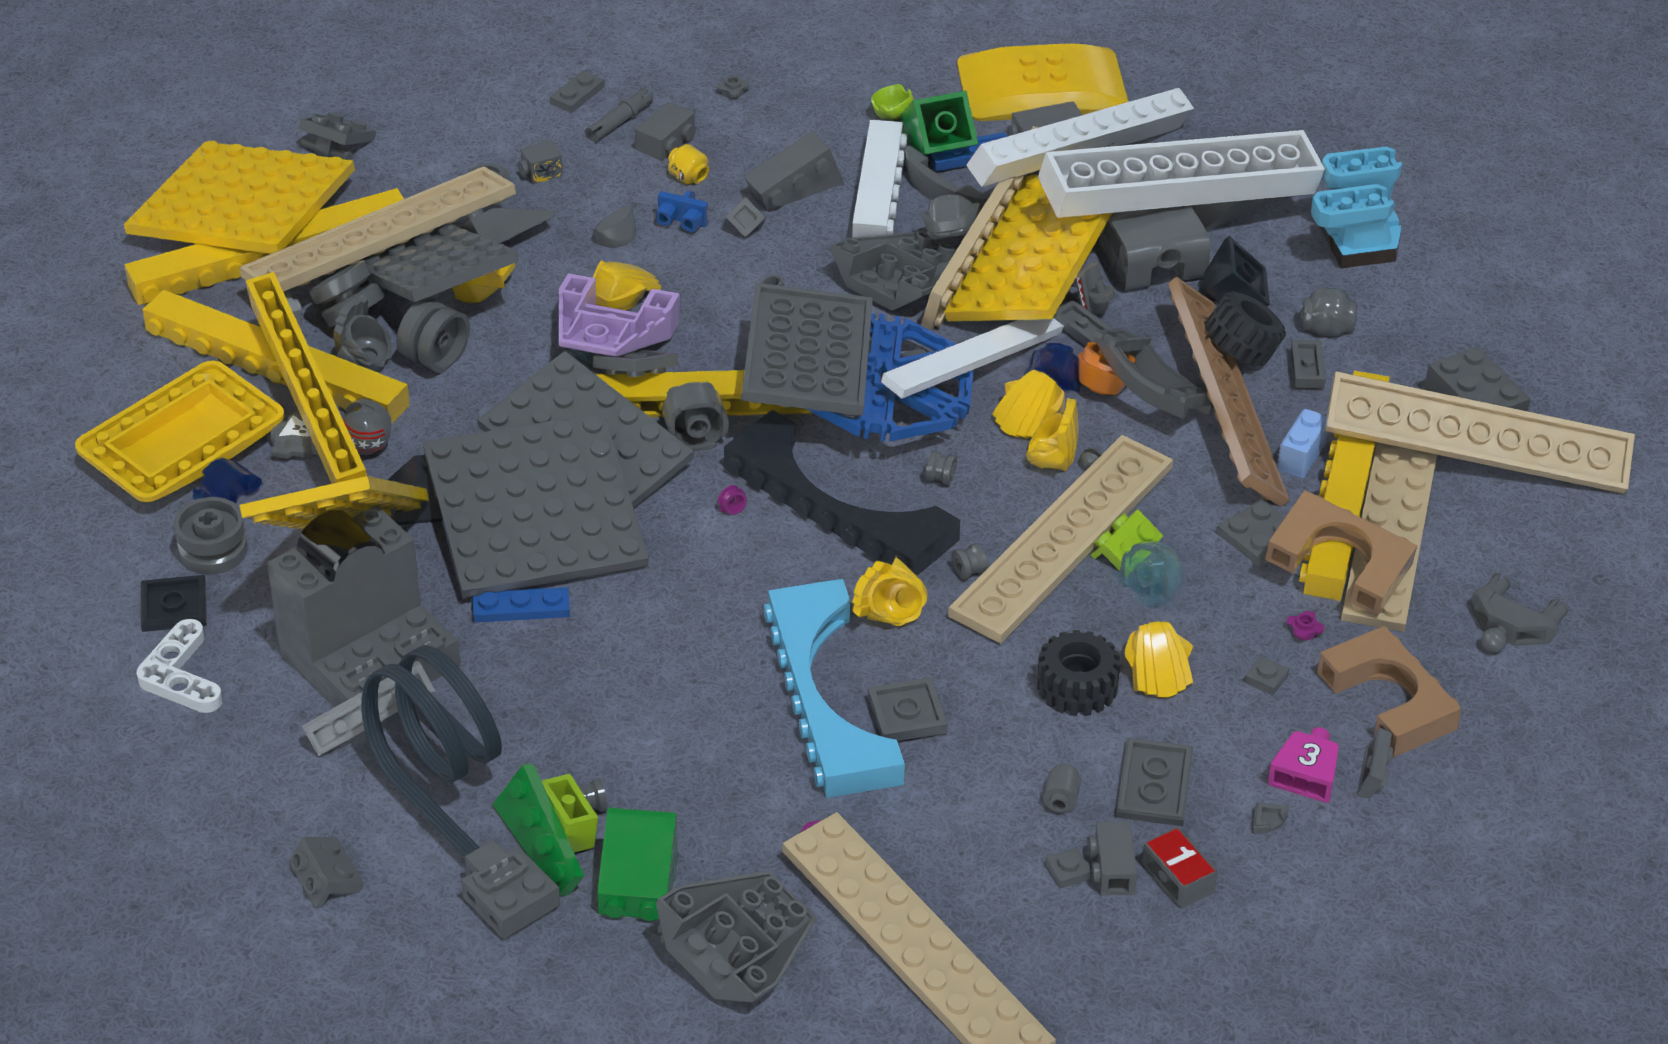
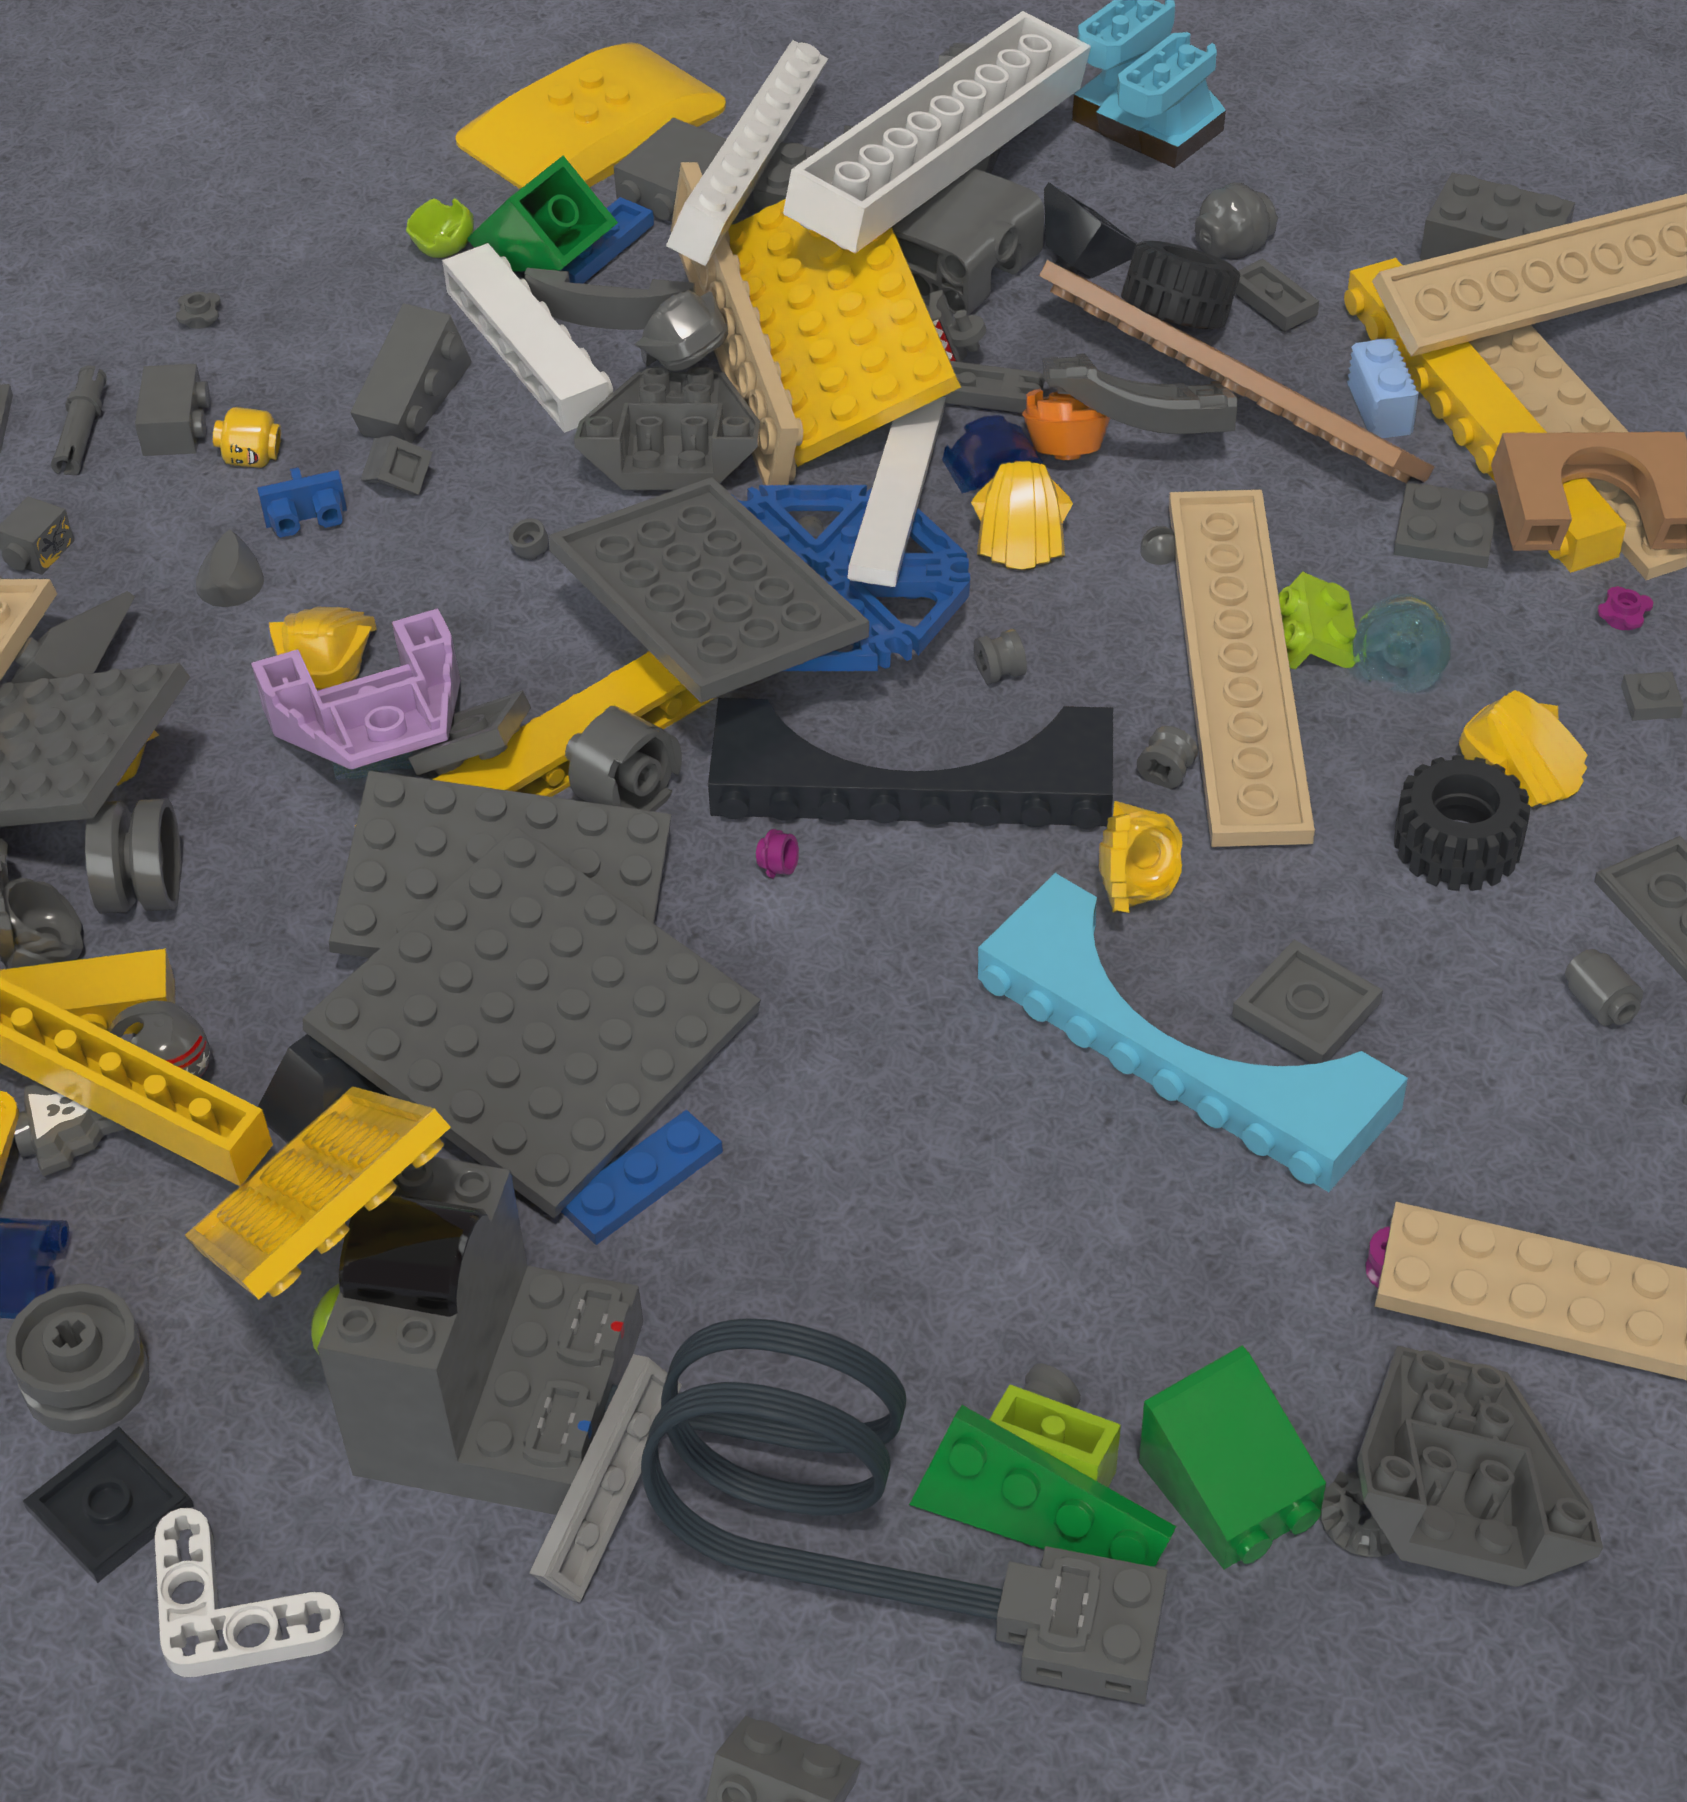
camera: 35 degrees left, 5 degrees up
(1055, 440) = (1110, 537): yellow hair -> none

